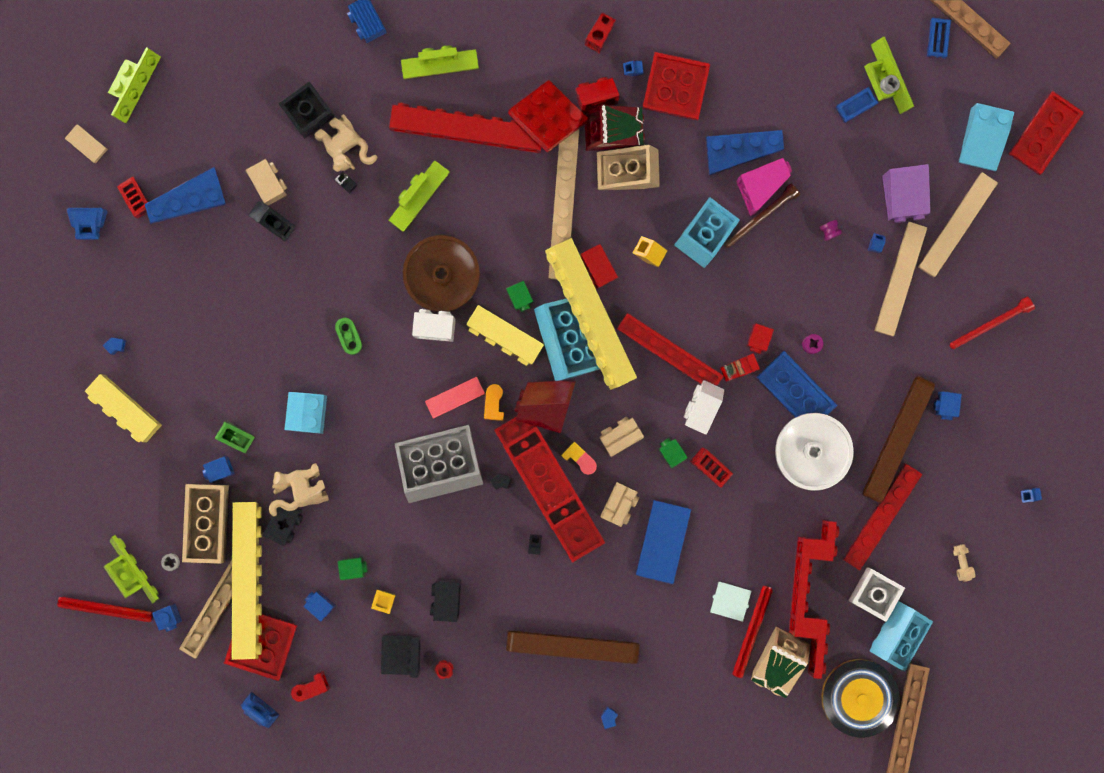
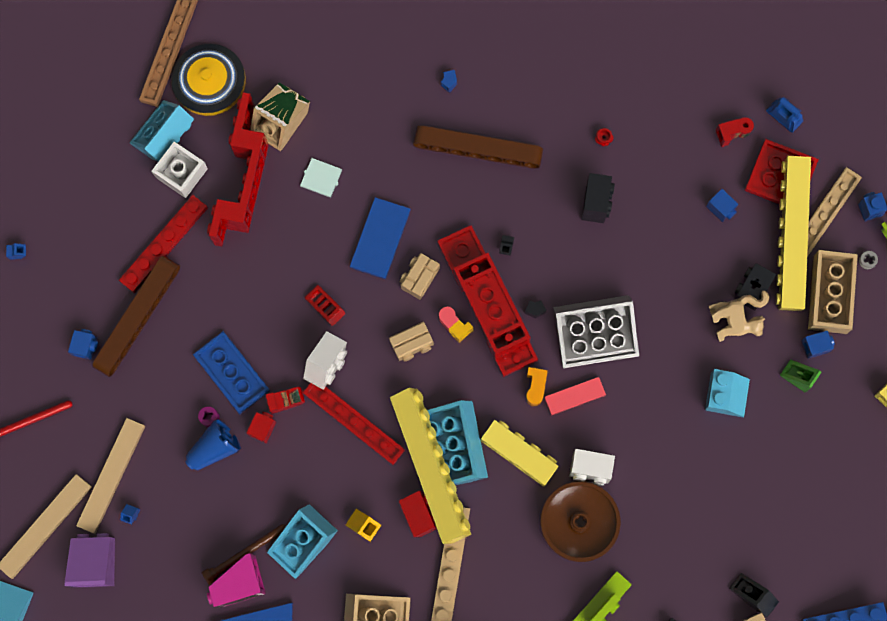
camera: 170 degrees left, 10 degrees down
(348, 336) = (680, 467): bright green plate -> none
(352, 568) = (688, 237): green brick -> none
(383, 601) = (659, 204): yellow plate -> none
(400, 655) = (644, 153): black bracket -> none
(520, 296) = (500, 491): green brick -> none
(545, 404) = (484, 377): dark red slope -> none
(672, 452) = (362, 321): green brick -> none
(752, 631) = (303, 148): red axle -> none
(804, 314) = (212, 446): none -> blue cone
(814, 451) = (221, 309): white dish -> none
(830, 230) = (175, 531): magenta wheel -> none
(965, 573) = (91, 184): tan bar -> none

